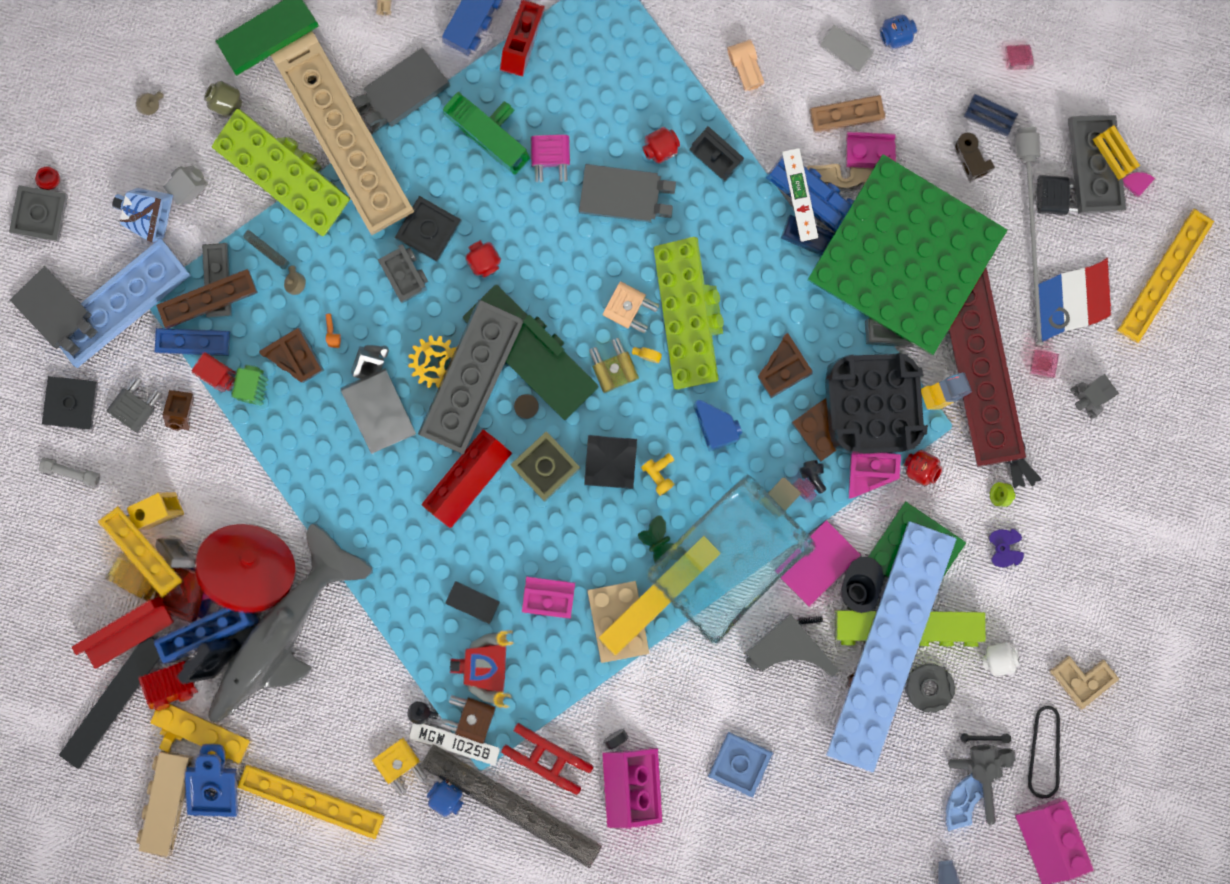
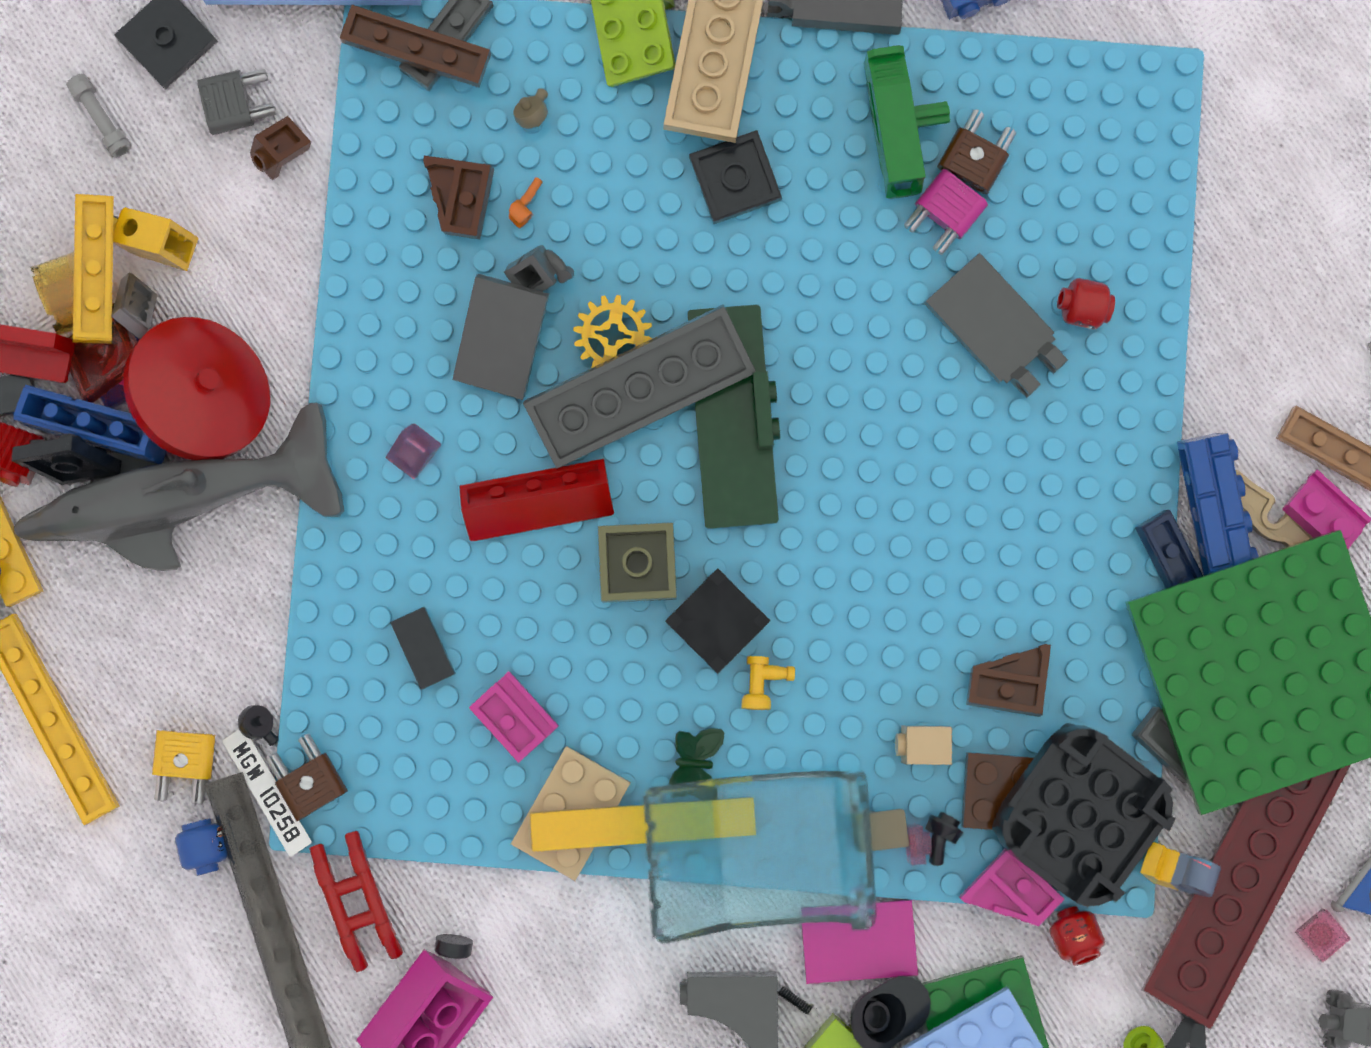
camera: 45 degrees right, 0 degrees up
(192, 342) = (359, 82): blue tile -> none
(214, 373) = (351, 136): red brick -> none
(250, 385) = (379, 184): bright green brick -> none
(266, 250) = (529, 46): clear smoke tile -> none
(381, 507) = (413, 450): none -> slope
(402, 273) = (662, 204): dark grey bracket -> none
(483, 258) = (769, 263): red head -> none
(485, 667) = (372, 736): torso -> none
(521, 38) = (1027, 47): red slope -> none
(526, 406) = (675, 475): dark brown tile -> none
(542, 118) = (974, 158): none -> reddish brown piece
(614, 371) = (813, 520): clear yellow piece -> none
(625, 305) = (888, 454): light nougat piece -> none
(647, 354) = (865, 532): yellow piece -> none
(689, 313) = (954, 524): lime bracket -> none
(716, 154) = (1142, 367): black hinge -> none
(717, 426) = (876, 684): blue slope -> none
(744, 58) = (1267, 284): light nougat piece -> none
(766, 436) = (924, 745): none -> tan brick
(800, 194) = (1201, 496): white sticker -> none

